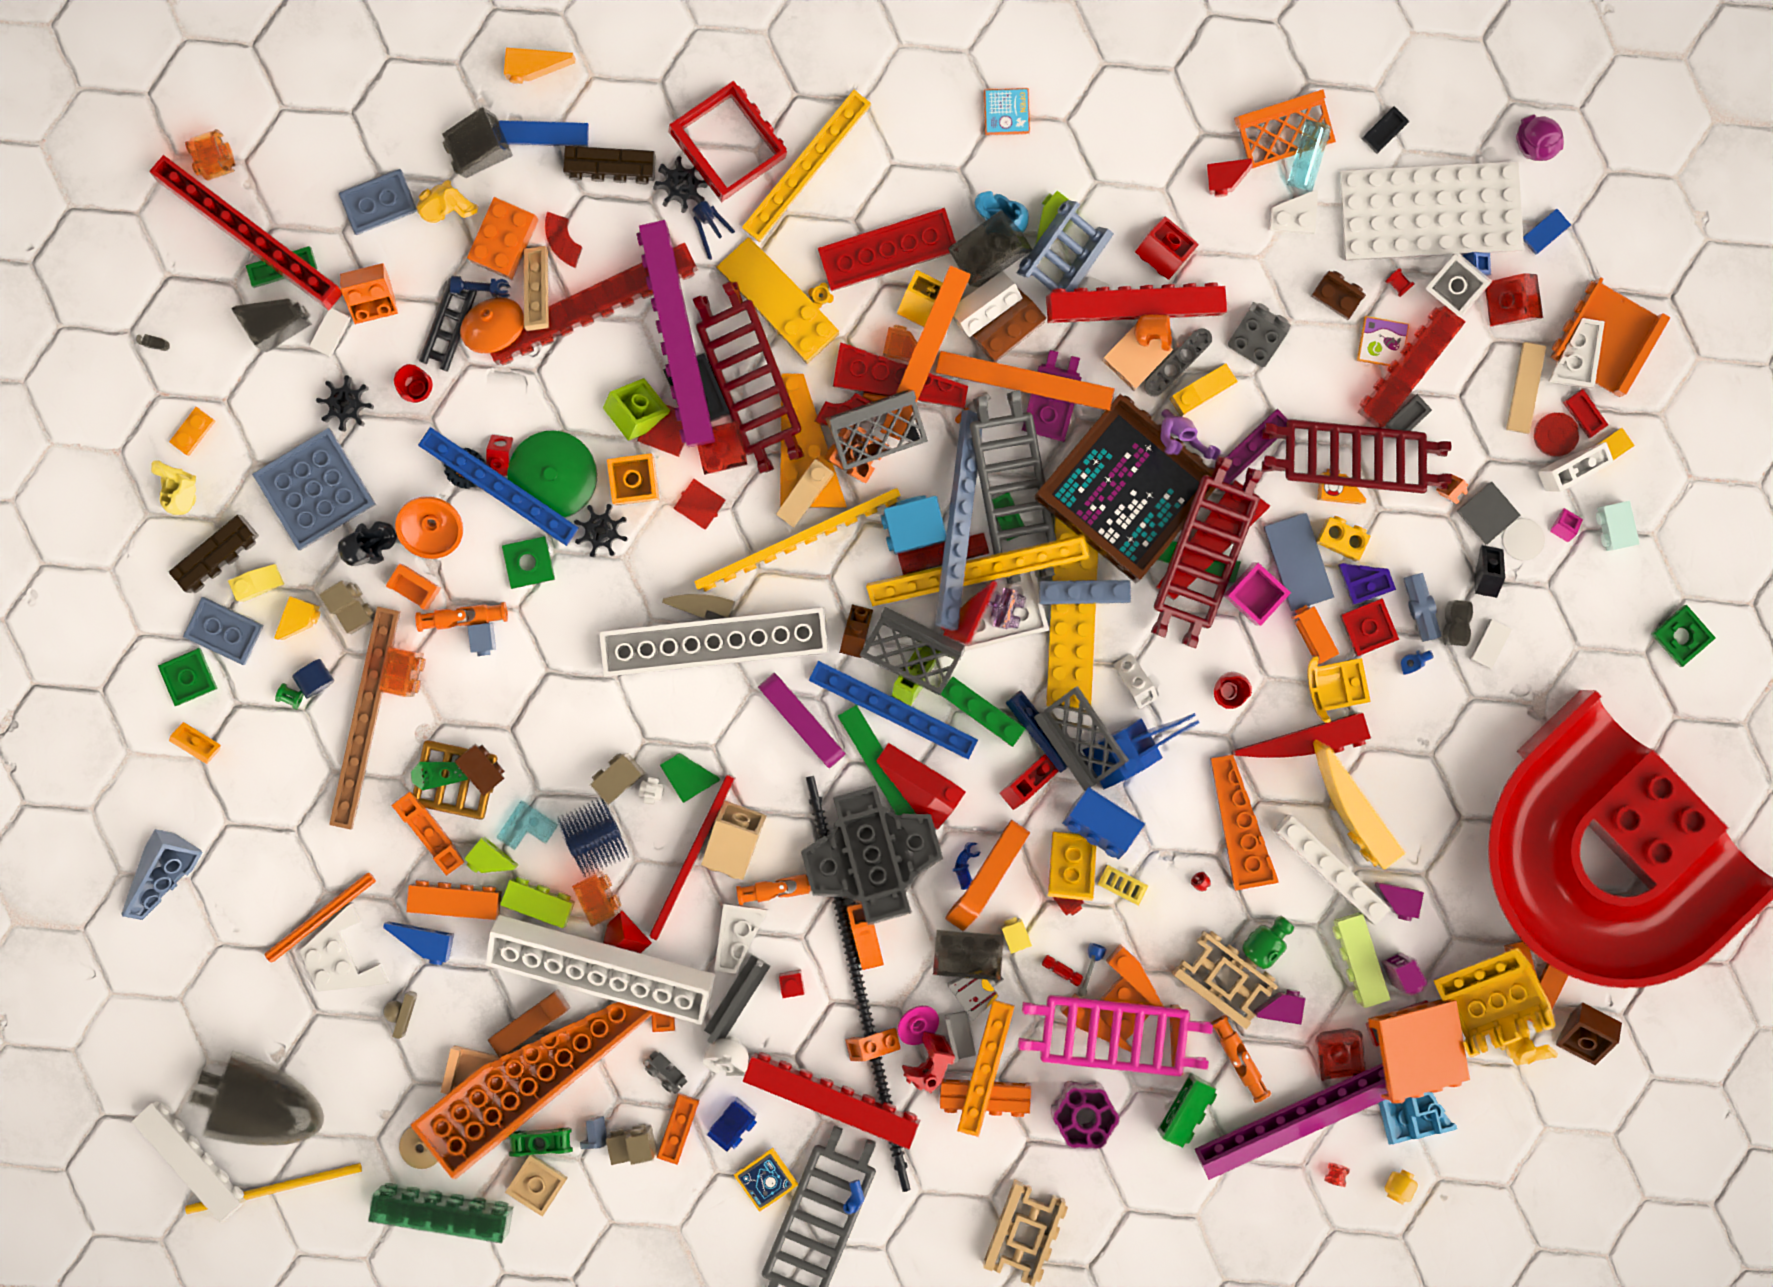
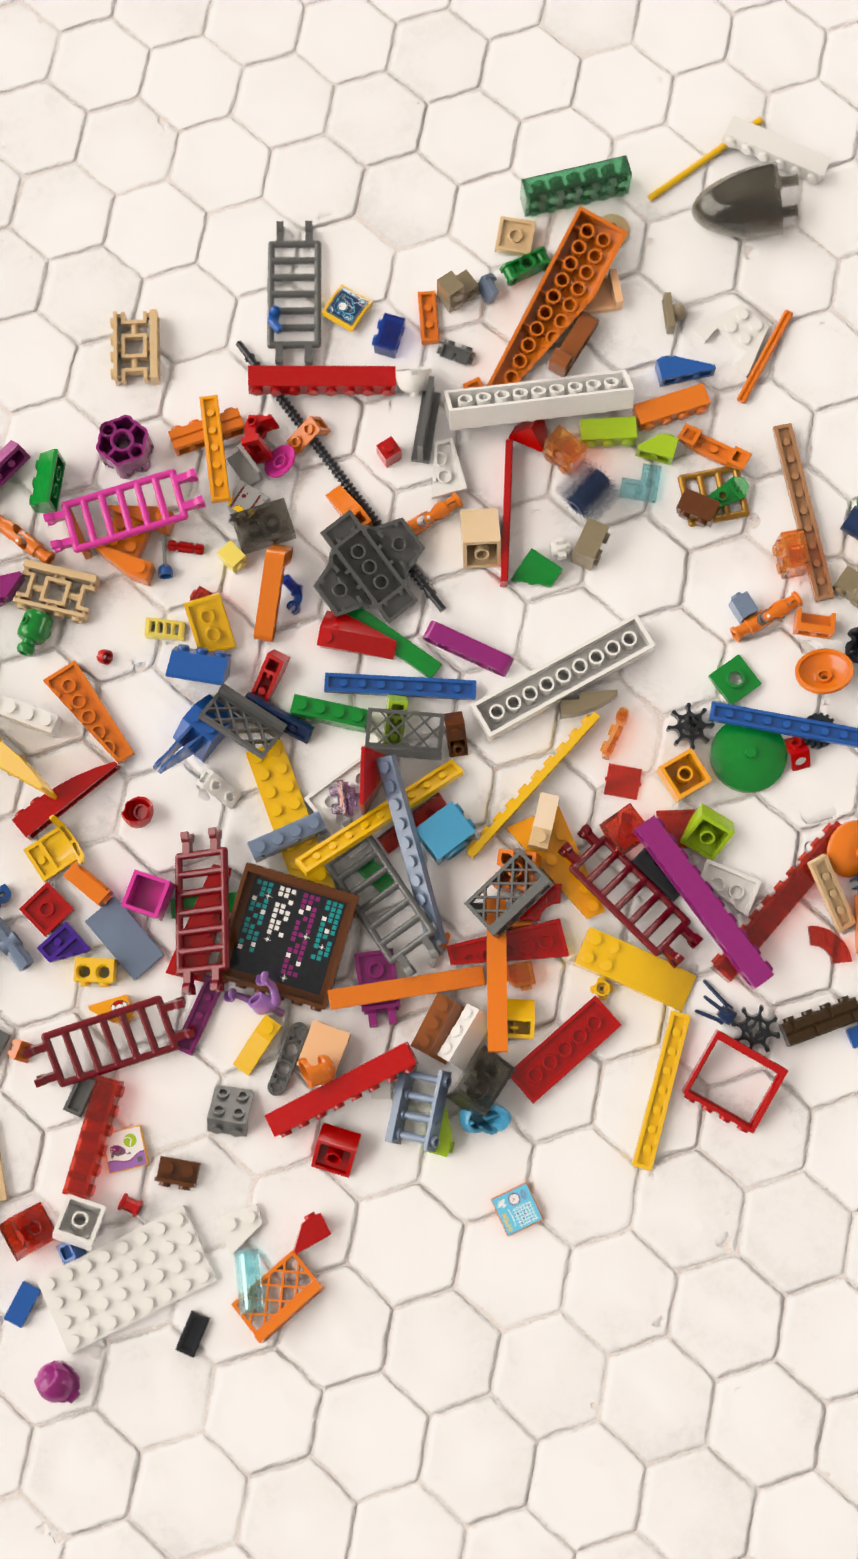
camera: 155 degrees right, 10 degrees down
(635, 343) = (731, 885): none -> white wing
(684, 559) = (615, 732): none -> clear orange hinge

